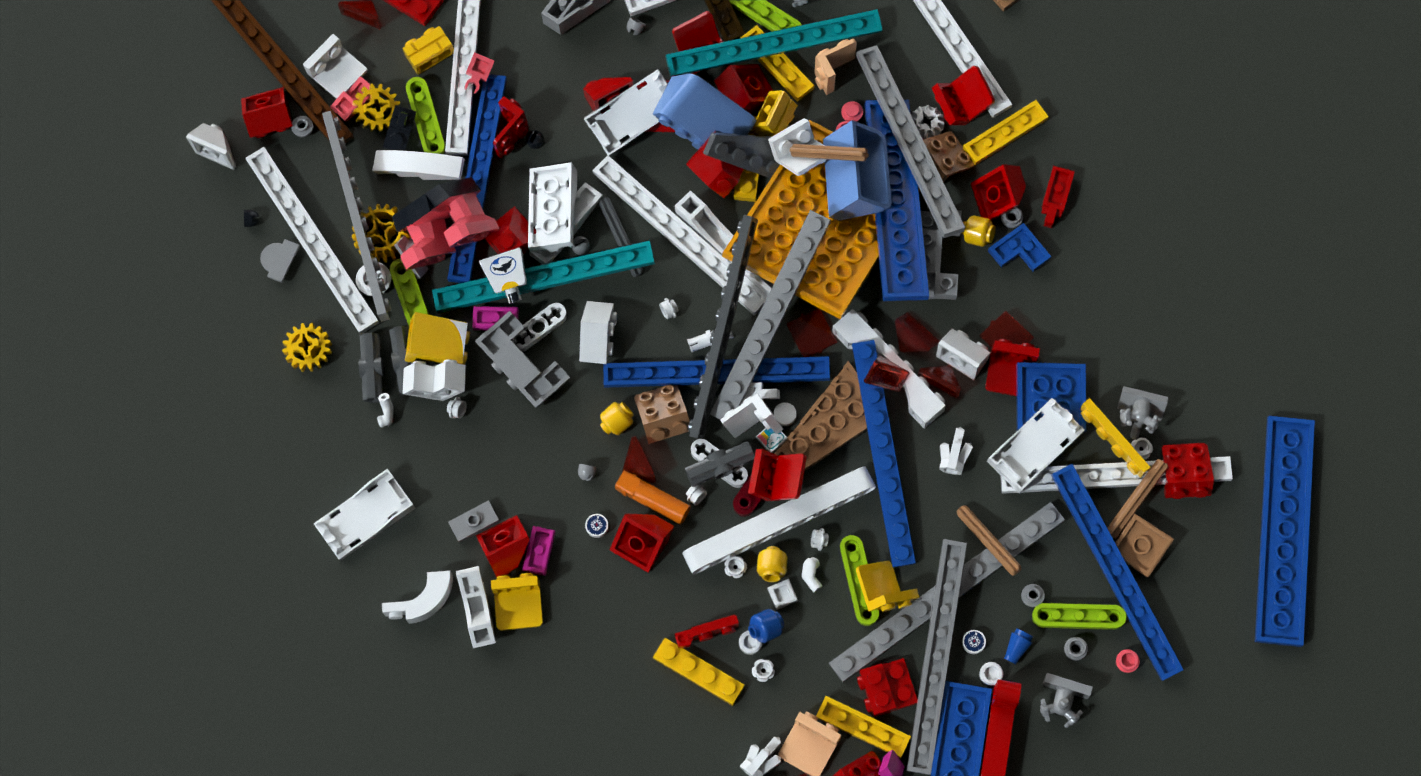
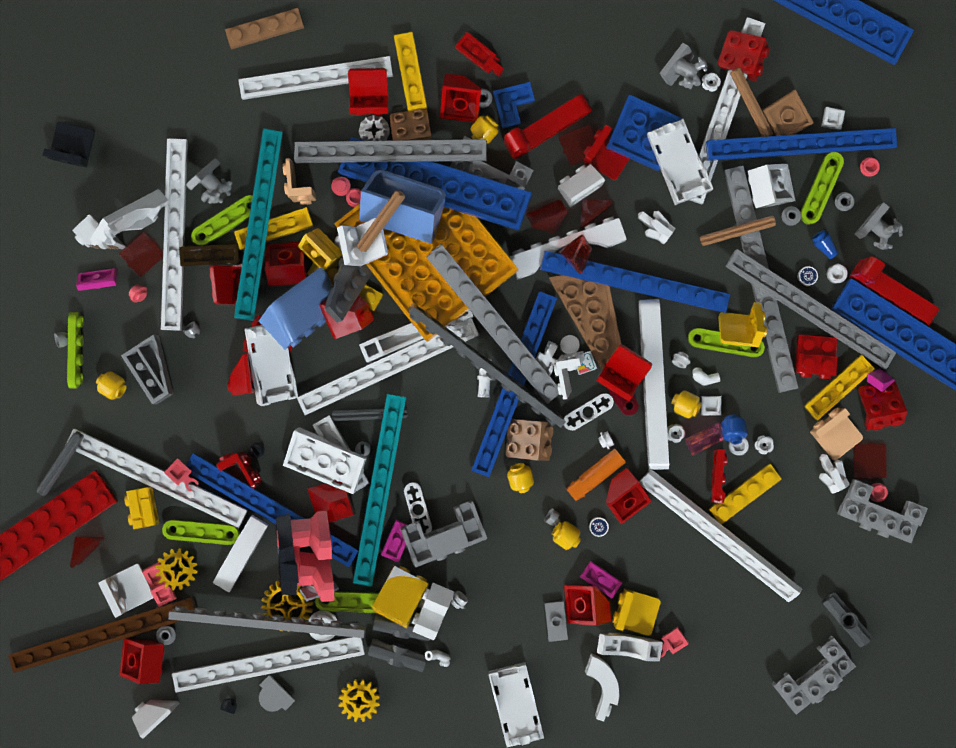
camera: 70 degrees left, 15 degrees up
(399, 128) = (203, 557): black hinge -> none
(500, 657) = (673, 641): none -> coral plate
(506, 273) = (368, 520): white torso -> none
(573, 492) = (566, 535): none -> yellow head
(595, 332) = (444, 465): white brick -> none
(637, 463) = (562, 475): clear red slope -> none
(639, 662) = (720, 536): none -> white plate
(668, 308) = (446, 400): white plate -> none
(720, 464) = (593, 413): dark grey piece -> none
(741, 599) = (704, 439): none -> clear pink plate
(811, 333) = (512, 296): clear red piece -> none
(1007, 292) = (521, 142): none -> red beam
(1056, 559) = (771, 185): none -> white slope
(1109, 432) = (707, 97): yellow plate -> none
(1163, 598) = (833, 118): none -> white tile

